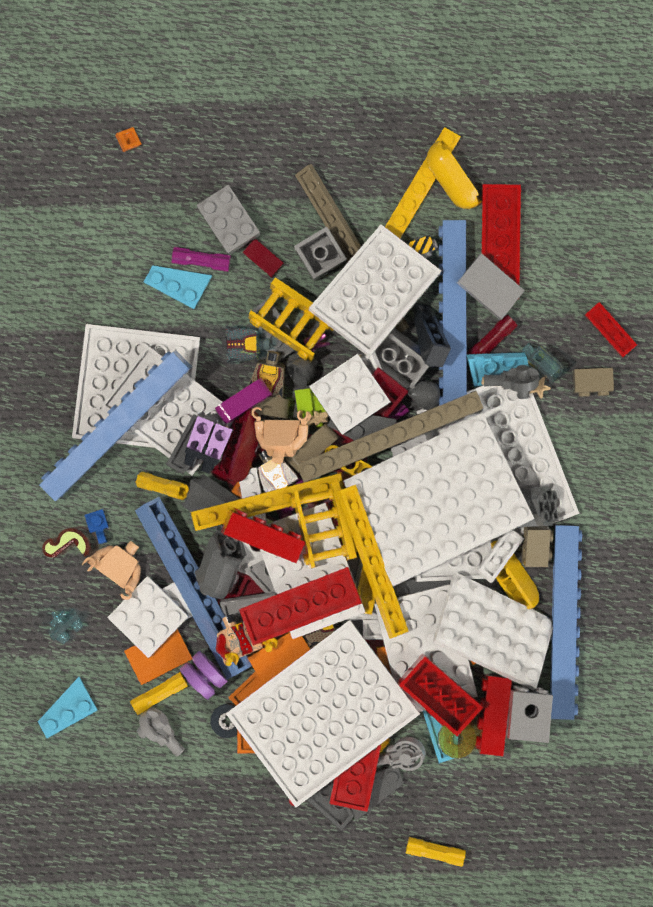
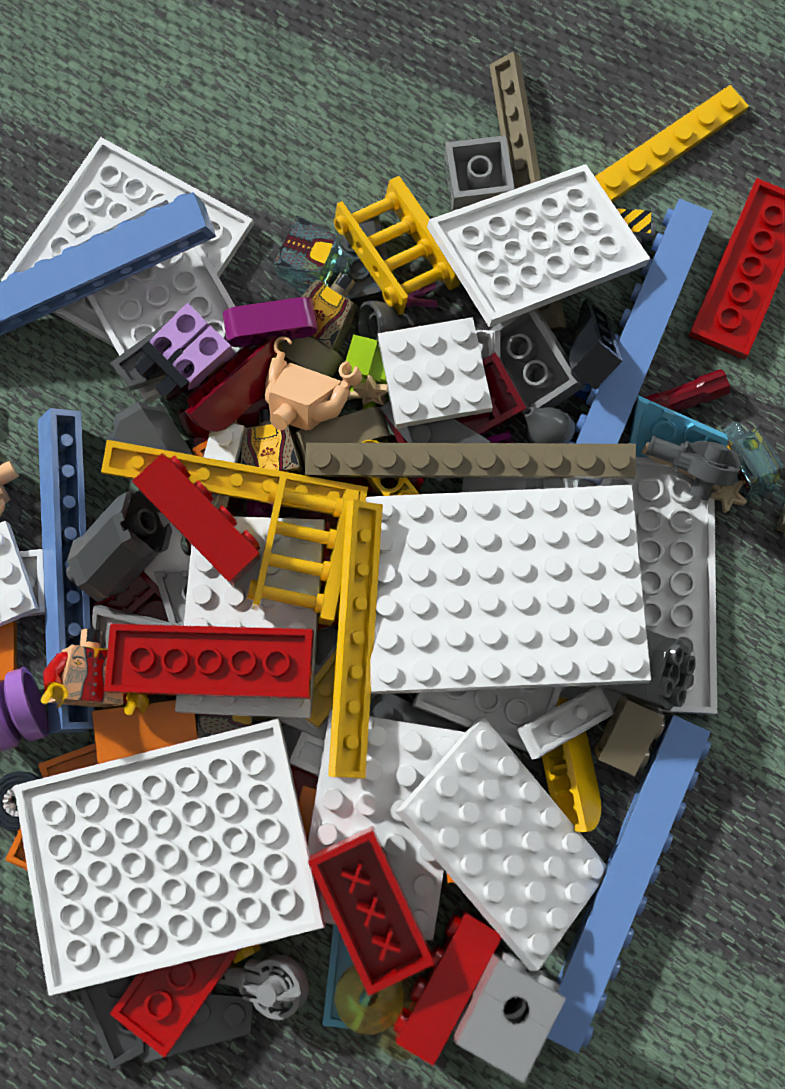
camera: 20 degrees right, 10 degrees down
(161, 485) = (101, 401): yellow axle -> none
(178, 284) = (258, 142): medium azure wing -> none
(214, 261) = (286, 109): magenta axle -> none
(228, 220) = (368, 81): light grey brick -> none
(263, 258) = (394, 153): dark red tile -> none
(452, 177) = (717, 151): yellow brick -> none
(490, 286) = (713, 315): light grey tile -> none

